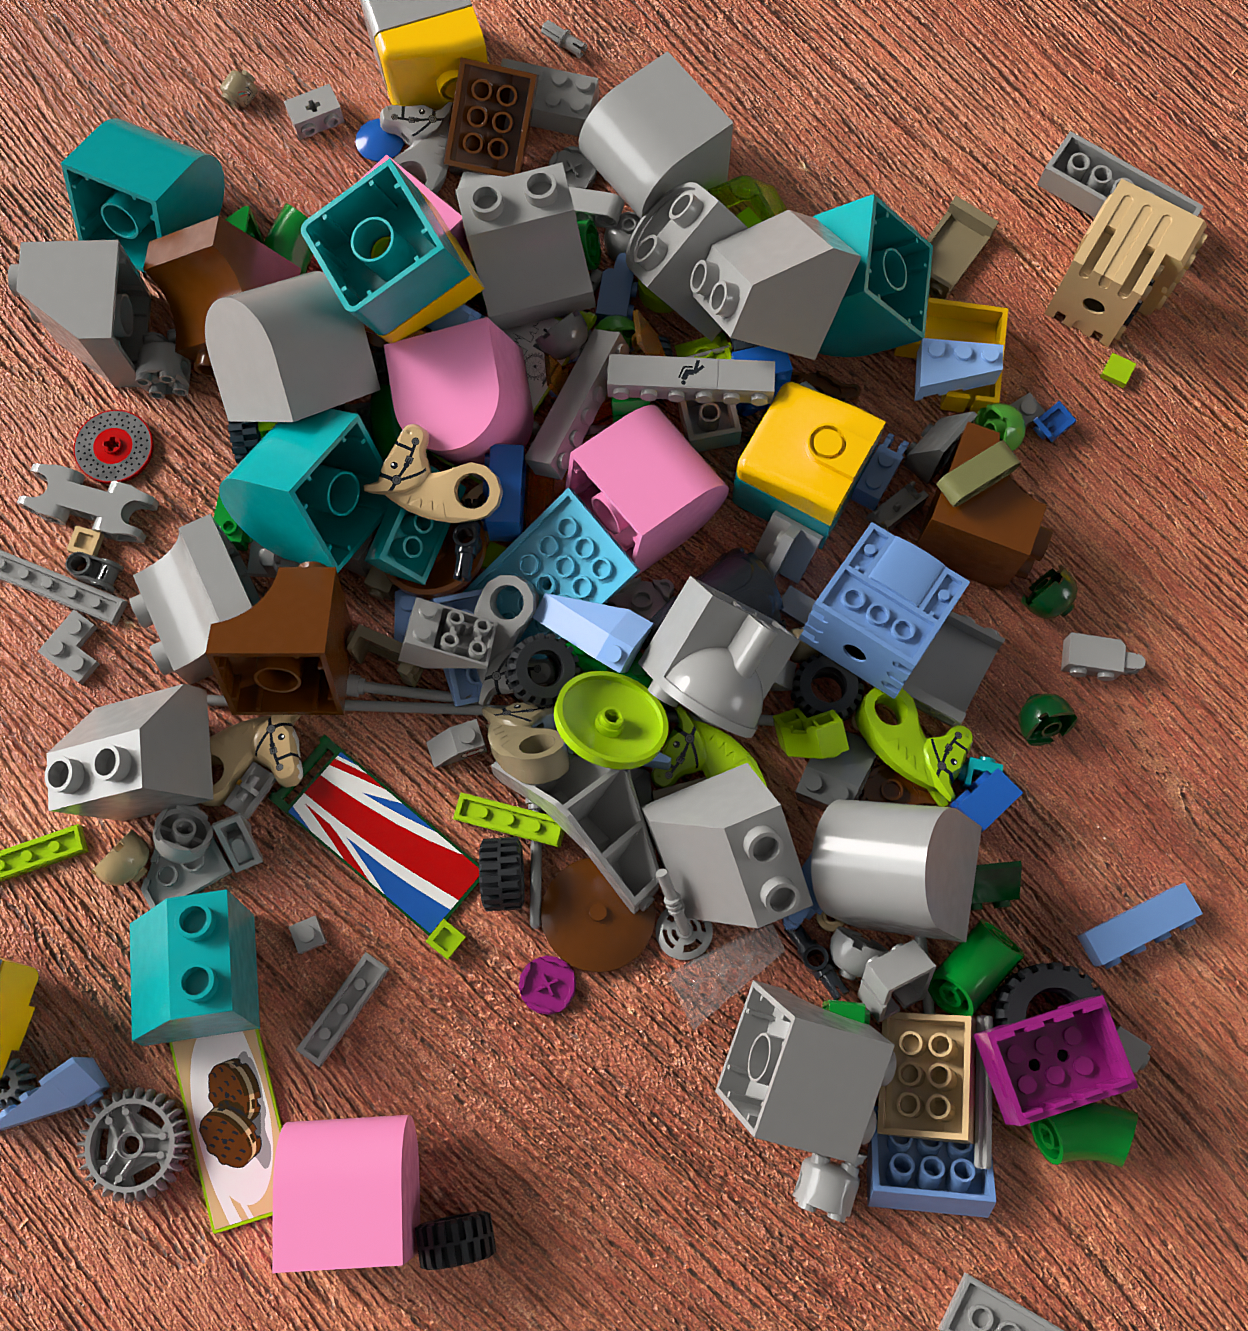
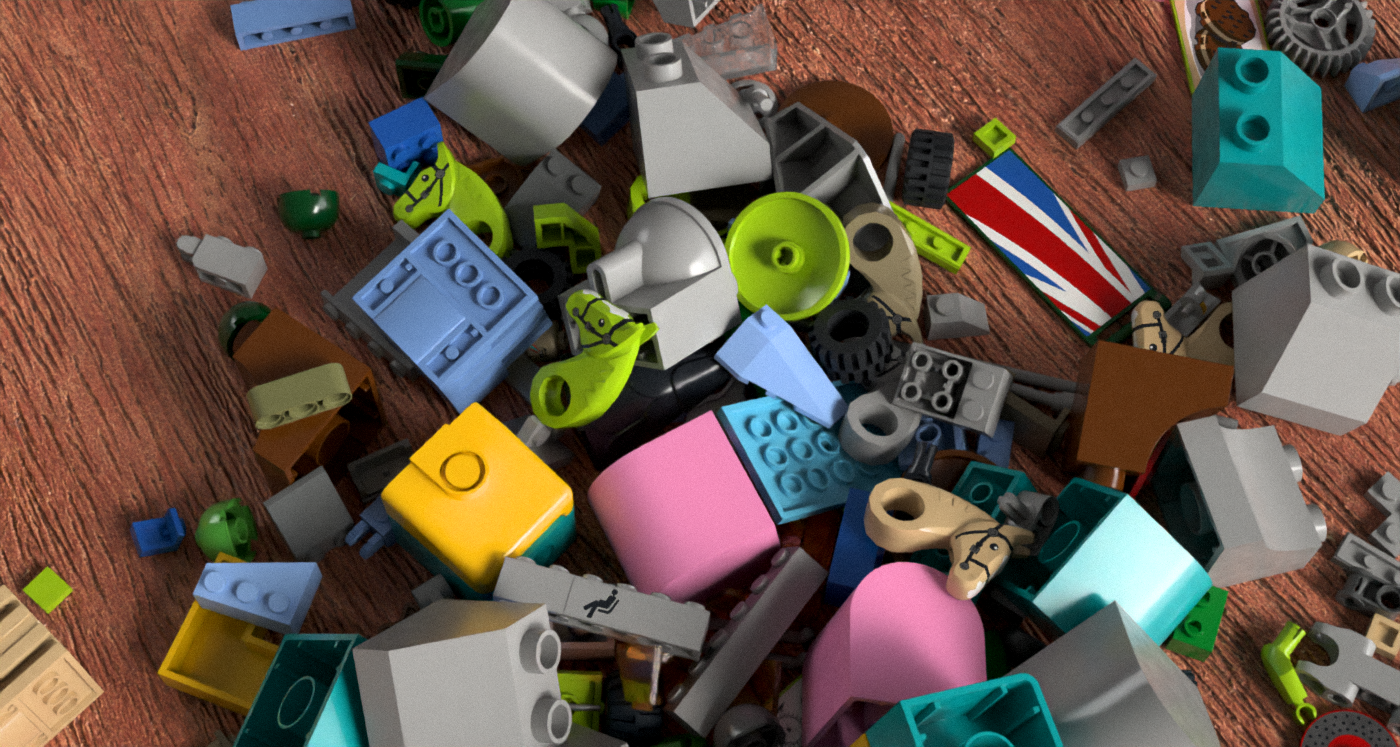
camera: 170 degrees left, 10 degrees down
(167, 498) = (1282, 673): none -> lime arm
(370, 523) = (1031, 512): none -> light grey beam
(547, 985) = (897, 83): magenta tile -> none
(752, 571) = (598, 373): none -> lime animal
(1028, 408) = (182, 563): light grey plate -> none

